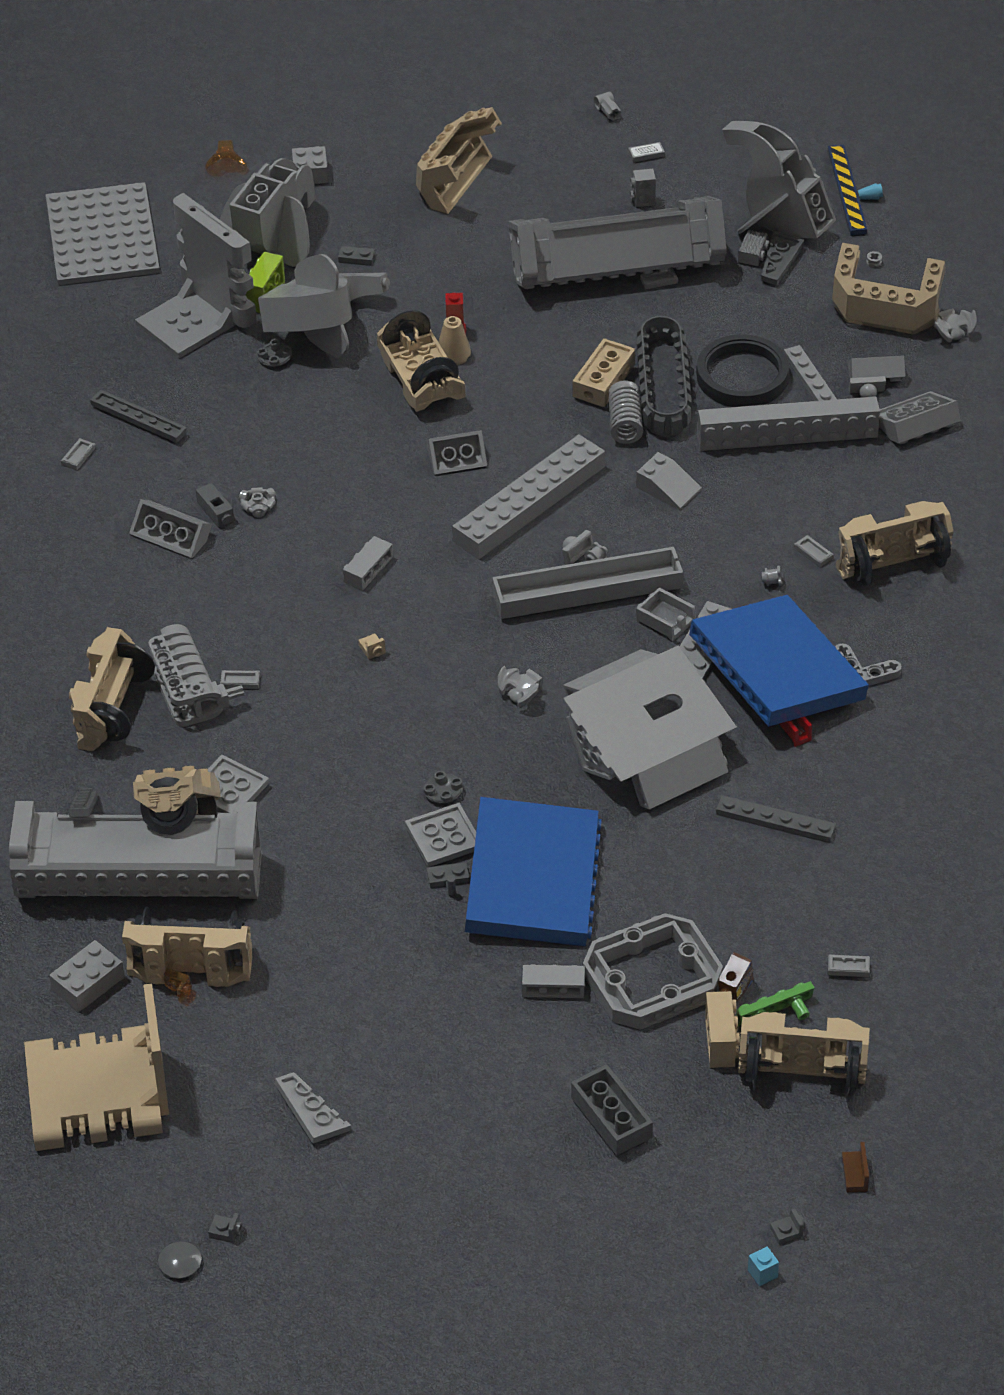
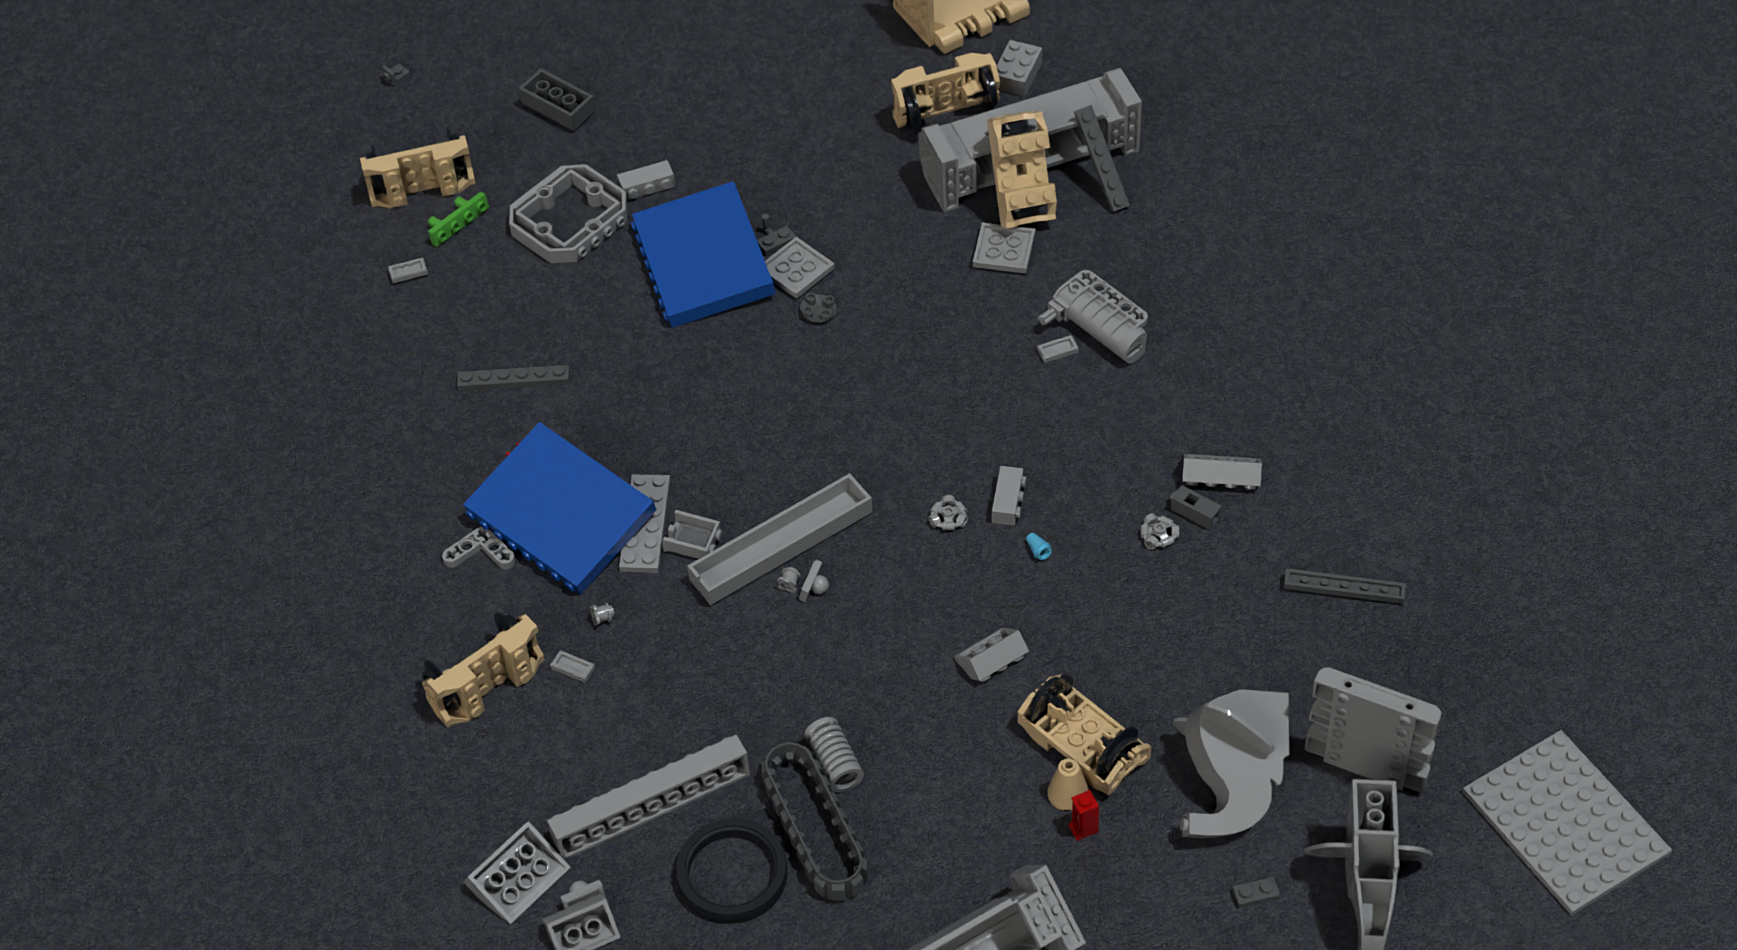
camera: 160 degrees right, 5 degrees up
(78, 454) = (1374, 526): light grey tile -> none
(96, 705) = (1165, 282): tan piece -> none
(266, 275) = (1326, 790): lime brick -> none
(310, 1110) = (788, 38): light grey wing -> none
(366, 517) = (1039, 547): none -> medium azure cone
(372, 646) = (955, 417): tan bracket -> none
(424, 565) = (948, 509): none -> light grey piece
(523, 686) = (790, 416): light grey animal -> none
(528, 496) = (886, 624): light grey brick -> none
(605, 367) = (882, 803): tan brick -> none
(623, 741) = (681, 402): light grey panel -> none
(666, 481) = (754, 692): light grey slope -> none
(721, 1029) = (492, 176): tan brick -> none
(736, 976) = (497, 217): torso -> none
(763, 1266) = (404, 39): medium azure brick -> none
(808, 374) = (647, 889): light grey plate -> none
(856, 1170) = (356, 126): reddish brown panel -> none

